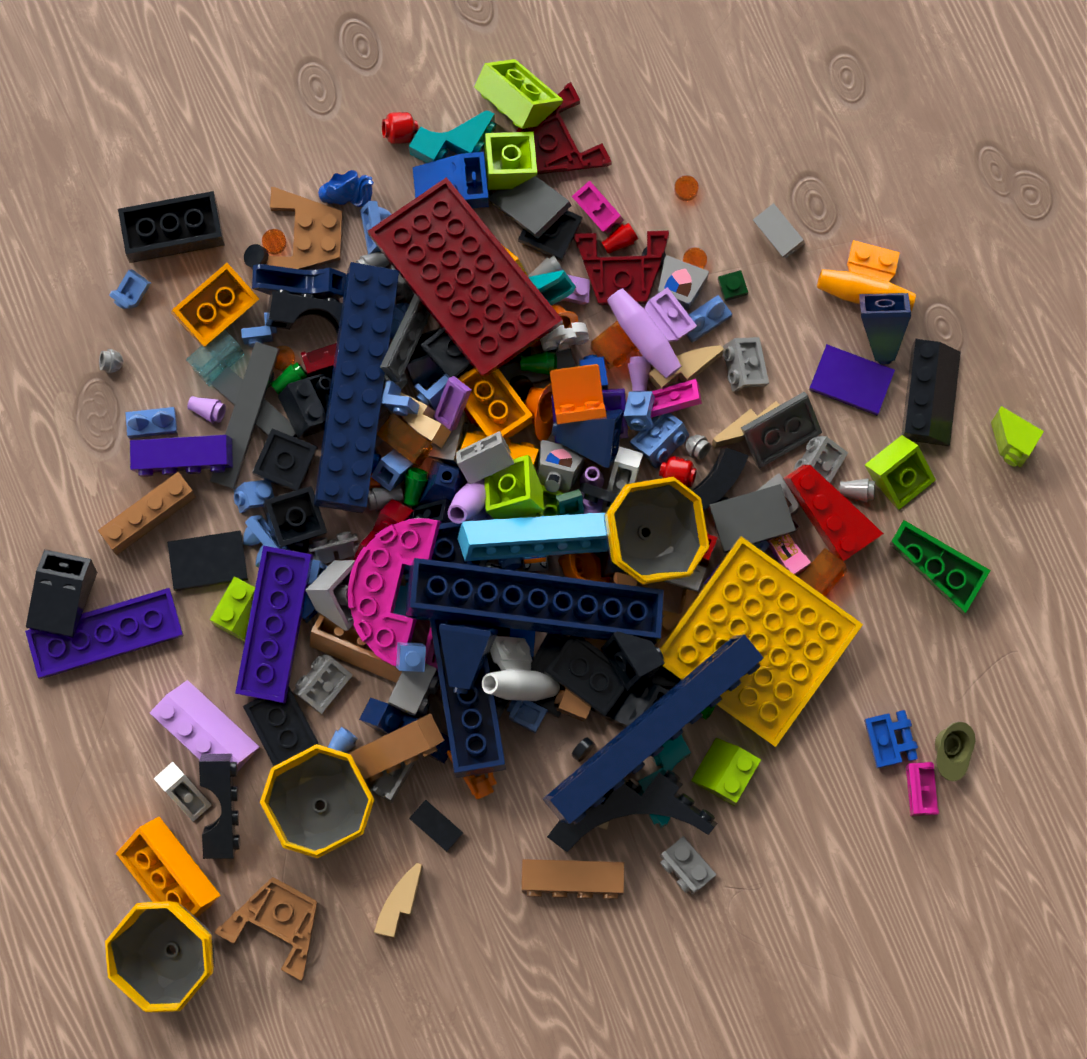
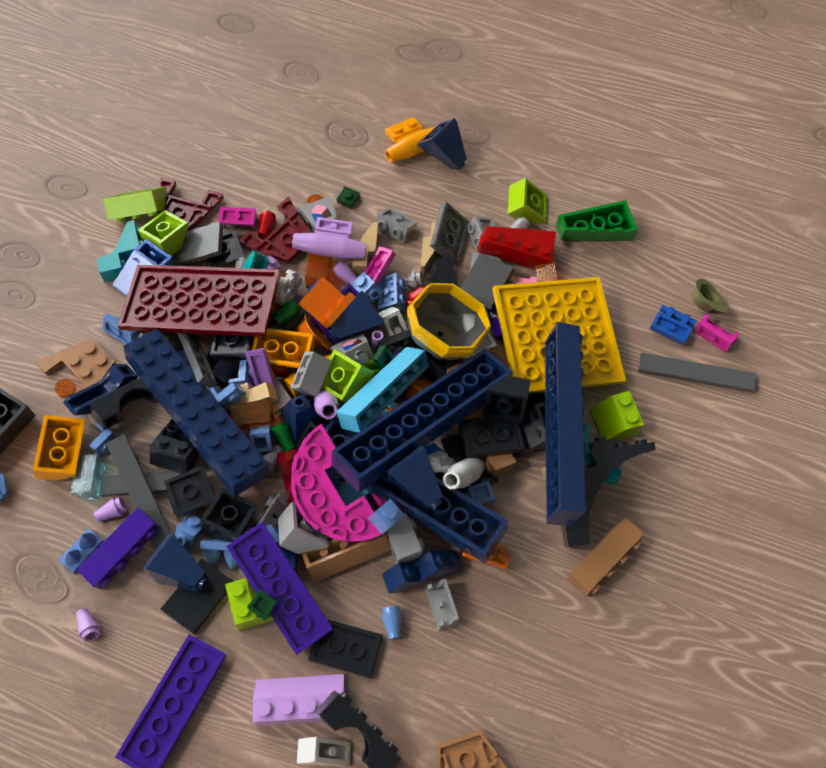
camera: 45 degrees left, 15 degrees down
(60, 592) = (116, 707): black slope -> none
(97, 498) = (87, 626): none -> lavender cone
(110, 361) = (19, 539): light grey plate -> none
(147, 513) = (129, 606): medium nougat brick -> none
(212, 520) = (175, 566): none -> dark blue slope
(244, 626) = (262, 604): none -> dark green plate
(255, 255) = (58, 405): black tile -> none
(285, 358) = (135, 441): clear orange tile -> none
(290, 374) = (144, 454): green cone -> none
(304, 781) = (415, 643): dark grey rock -> none
(319, 360) = (157, 422): dark red hinge -> none
(322, 682) = (343, 595): light grey bracket -> none
(347, 189) = (84, 323): blue hair -> none
(397, 747) = (430, 583): medium nougat brick -> none
(399, 127) = (84, 271): red head -> none
(399, 902) = (528, 677): tan slope -> none
(436, 825) = (498, 609): black tile -> none
(583, 749) = (530, 479): black tile -> none
(686, 188) = (275, 176): clear orange tile -> none
(687, 866) = (655, 487): light grey bracket -> none
(708, 317) = (354, 215): medium blue tile -> none
(779, 231) = (344, 152): light grey hinge -> none
(851, 379) = (455, 187): dark purple tile -> none
(855, 806) = (697, 372): none -> dark grey tile
(931, 392) = (496, 159): black slope -> none
(1014, 437) = (561, 139): lime slope -> none

